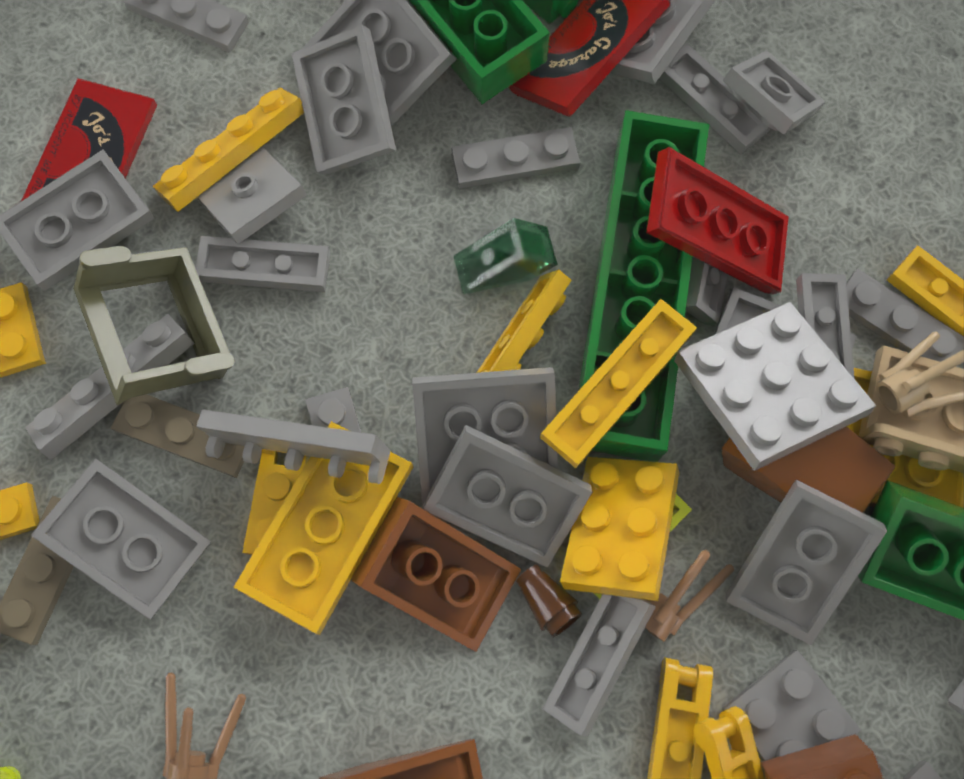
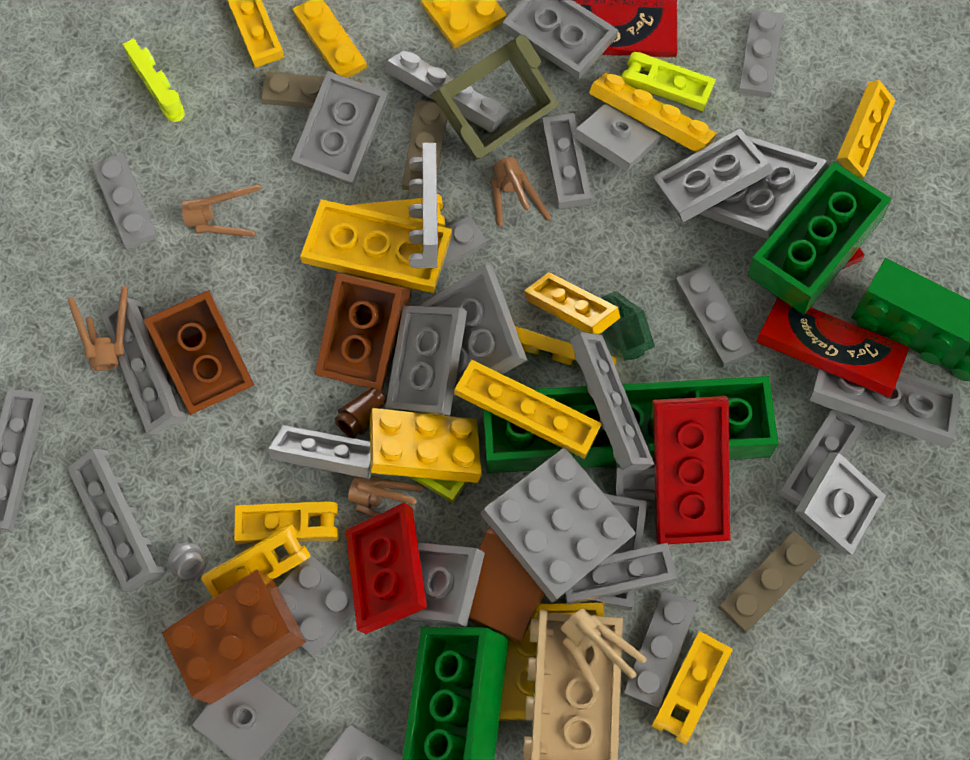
camera: 80 degrees right, 5 degrees down
(190, 119) = (668, 81): none -> neon yellow plate
(267, 336) = (510, 179): none -> medium nougat plant
(474, 302) = (572, 304): none -> yellow plate
(632, 281) = (611, 402): none -> light grey plate
(778, 611) = (385, 569): none -> red plate
(840, 191) = (769, 582): none -> dark tan plate

